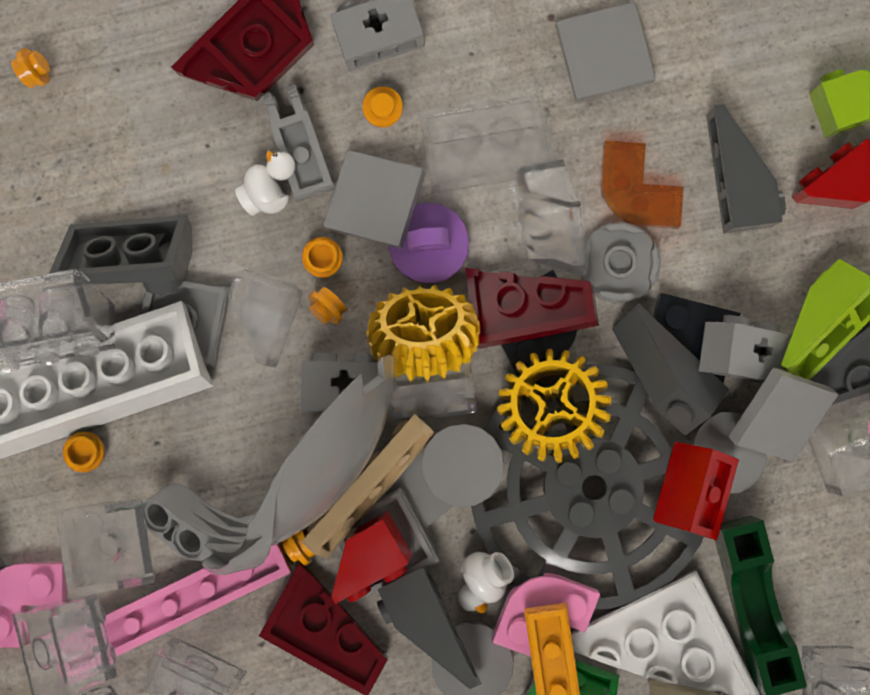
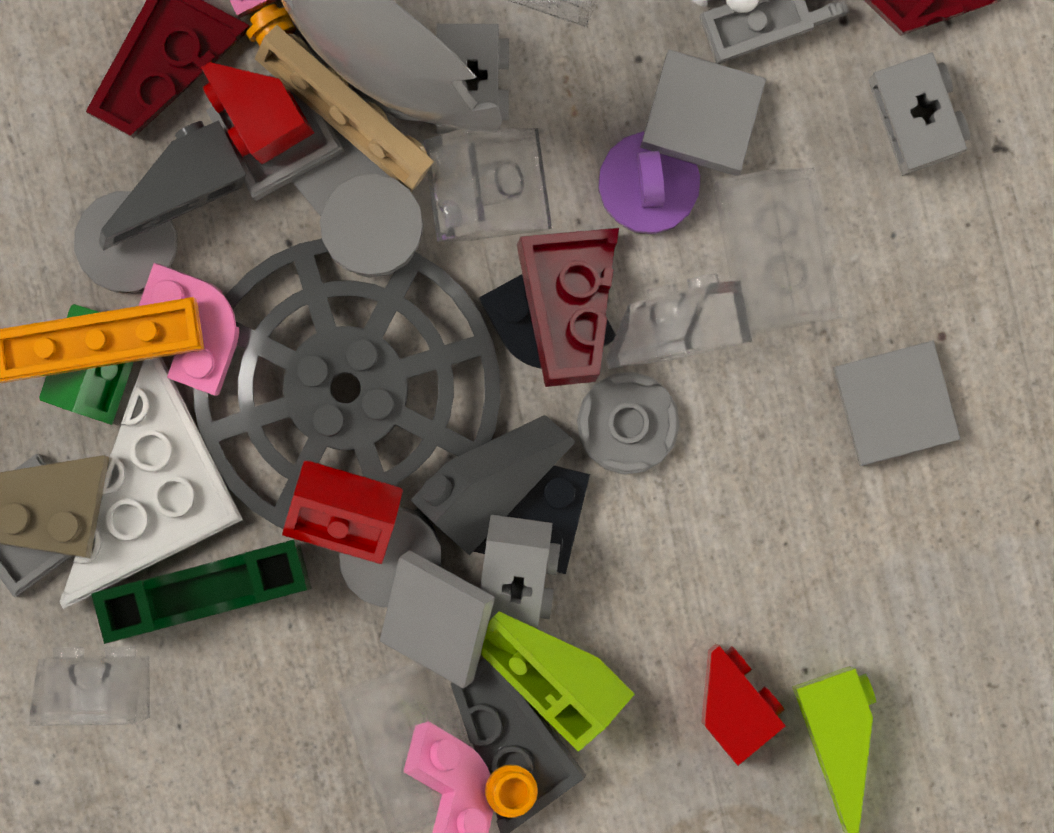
camera: 85 degrees right, 0 degrees up
(322, 257) = (630, 49): light orange plate -> none
(326, 306) = (567, 55): light orange plate -> none
(382, 107) = (821, 122): light orange plate -> none
(424, 332) = (535, 172): yellow gear -> none
(485, 580) = (229, 255): white animal -> none
(562, 389) = (463, 343): yellow gear -> none
(627, 194) = (714, 431): clear orange plate -> none
(743, 182) = (728, 577): dark grey slope -> none

